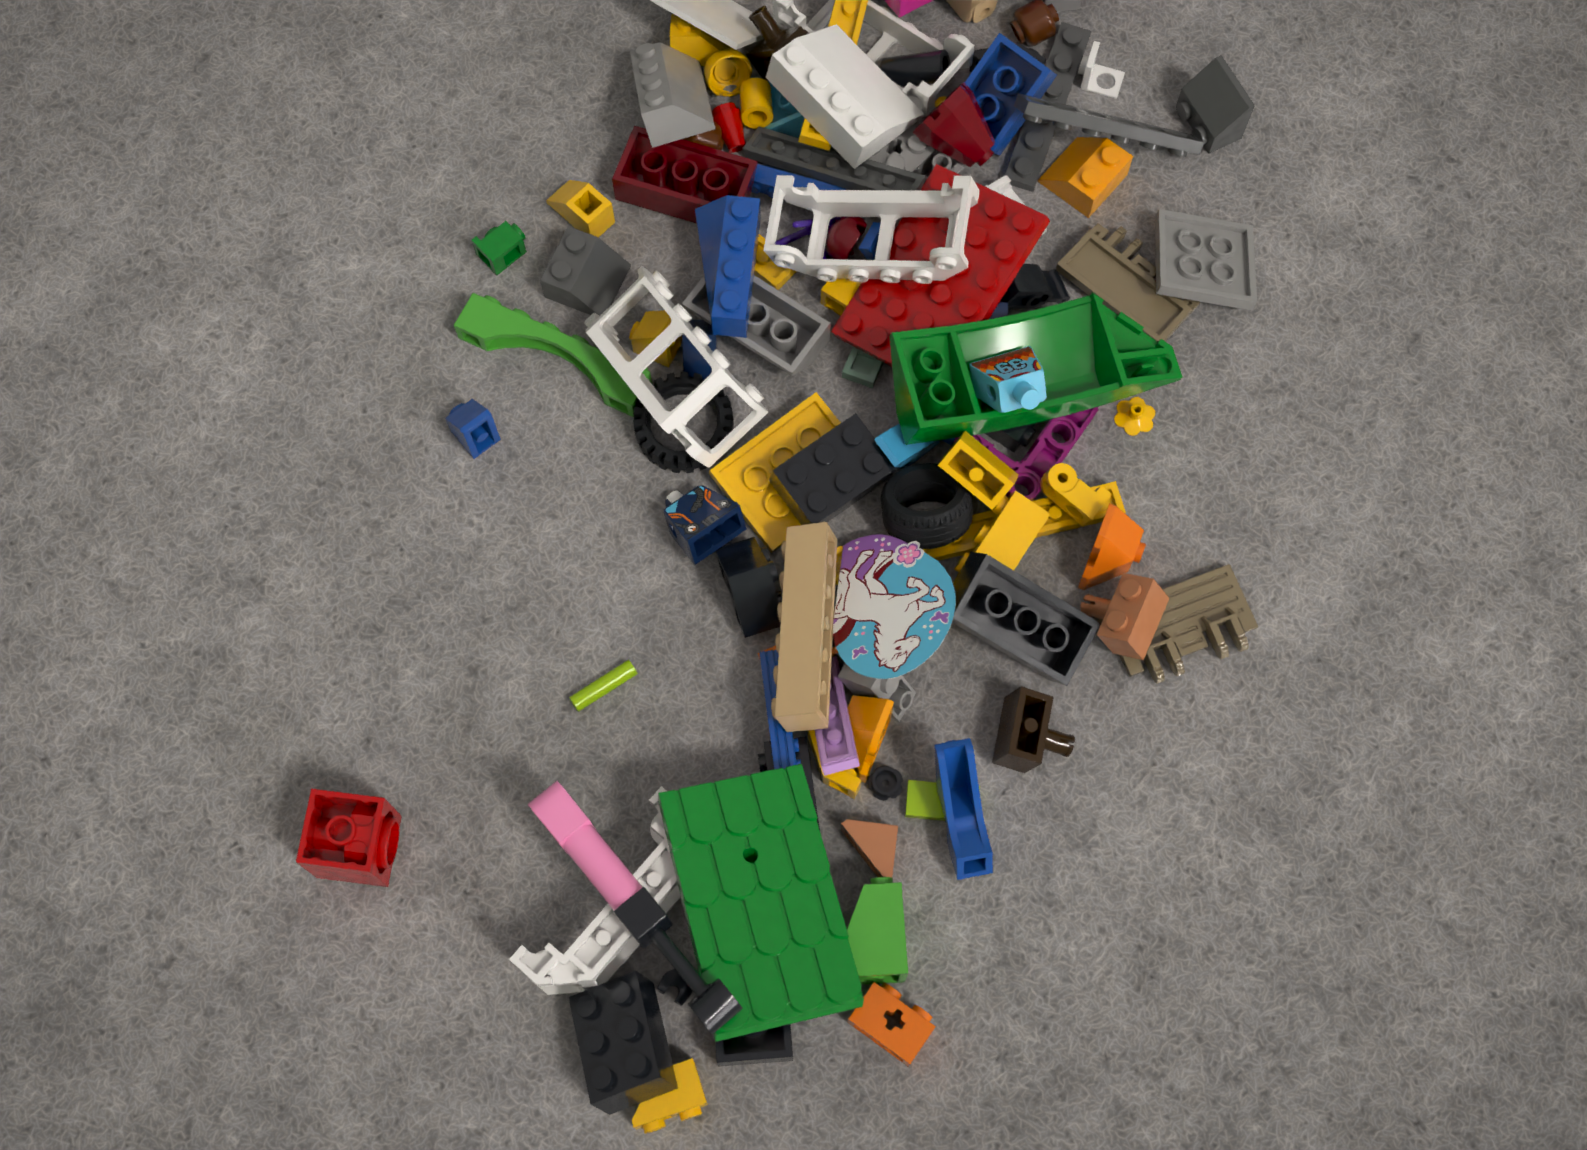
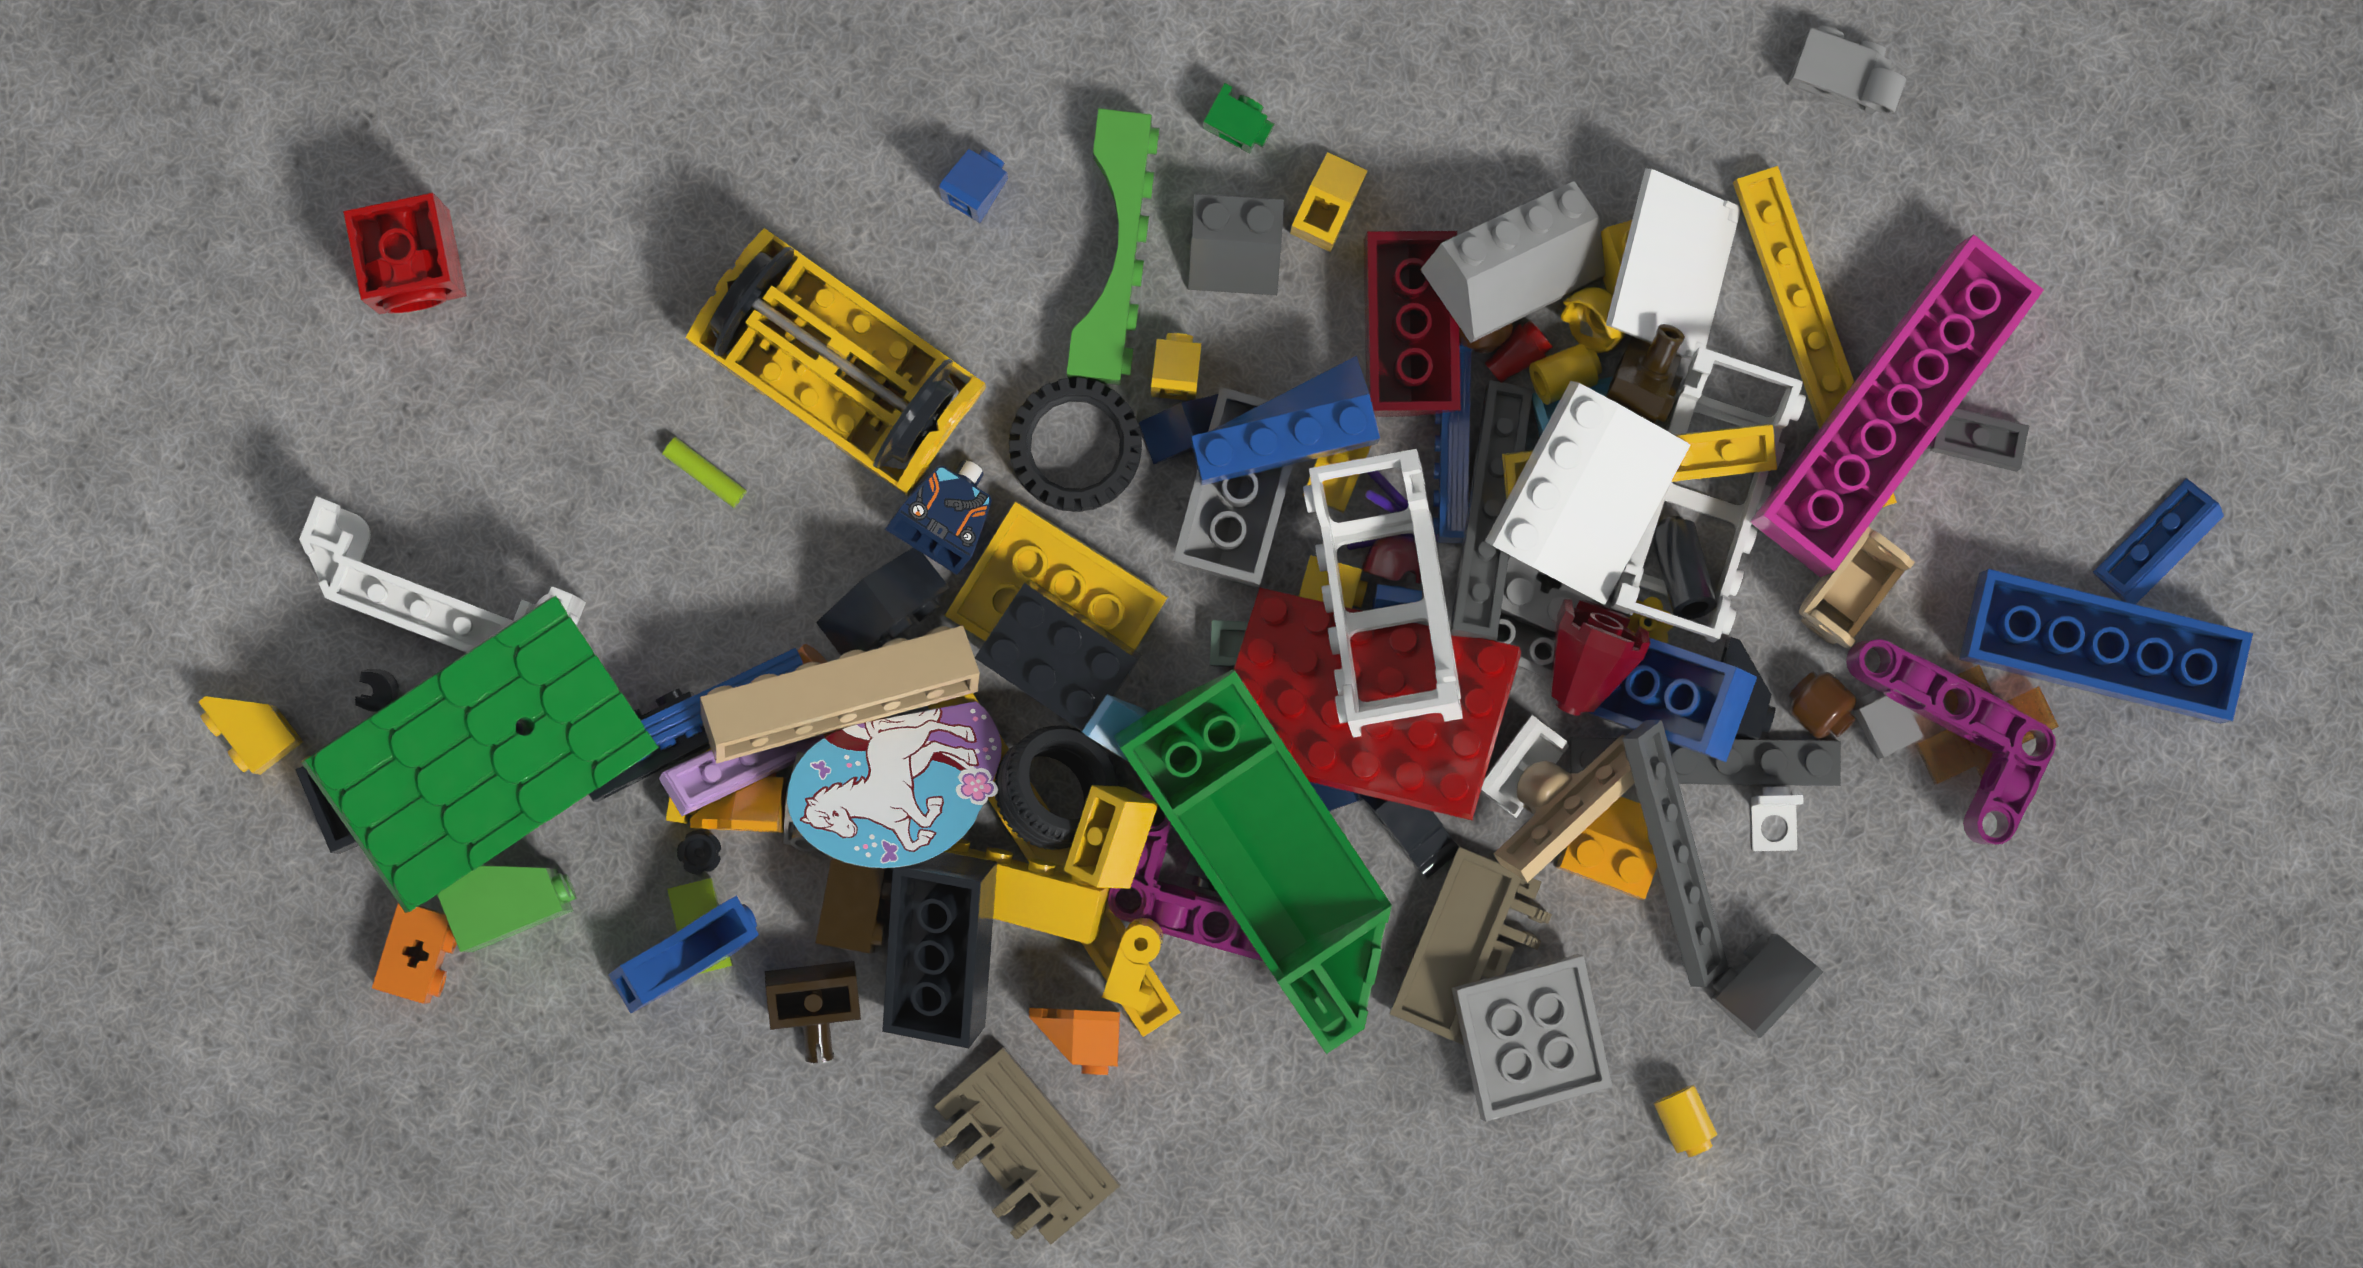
camera: 65 degrees right, 15 degrees up
(593, 542) = (798, 335): none -> yellow piece
(622, 1043) = (283, 655): black brick -> none
(628, 899) = (413, 620): piece -> none
(673, 421) = (1222, 340): white windscreen -> none
(874, 843) = (616, 865): nougat slope -> none
(962, 674) = (854, 907): none -> dark brown brick
(1009, 380) = (1235, 840): medium azure torso -> none
(1053, 180) = (1562, 807): none -> tan plate
(1130, 615) = (996, 1080): nougat brick -> none
(1134, 416) = (1274, 1013): yellow plant -> none
(1290, 187) = (1686, 1121): none -> yellow brick

